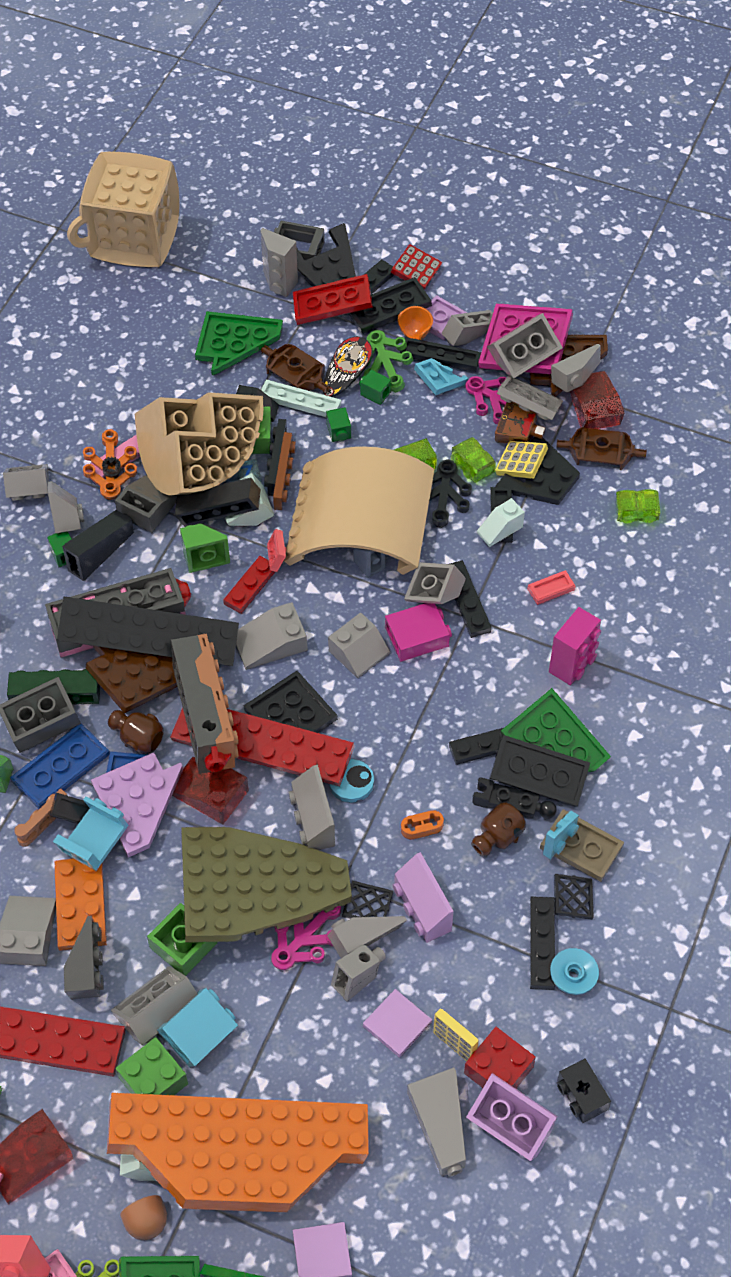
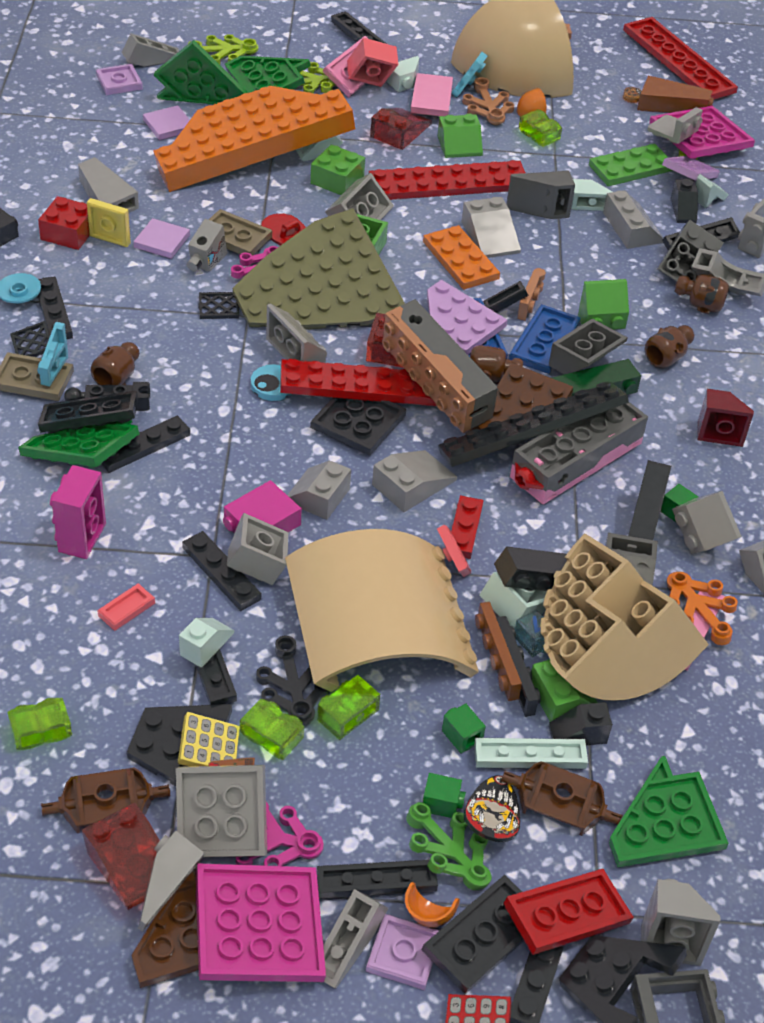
camera: 155 degrees right, 10 degrees down
(81, 969) = (423, 199): dark grey slope -> none
(94, 834) = (478, 275): medium azure panel -> none
(111, 462) = (686, 596): black bush -> none
(198, 1027) = (314, 191): medium azure panel -> none
(204, 547) = (534, 526): bright green slope -> none
(250, 997) = (282, 226): none -> red shield
(314, 1002) = (241, 234): none -> dark tan plate
(361, 931) = (210, 270): light grey slope -> none
(422, 824) = (191, 363): orange beam -> none
(423, 899) = (166, 303): lavender slope -> none
(438, 377) = (363, 841): medium azure wing -> none
(512, 1117) = (46, 187): lavender slope -> none
(525, 346) = (254, 880): light grey slope -> none

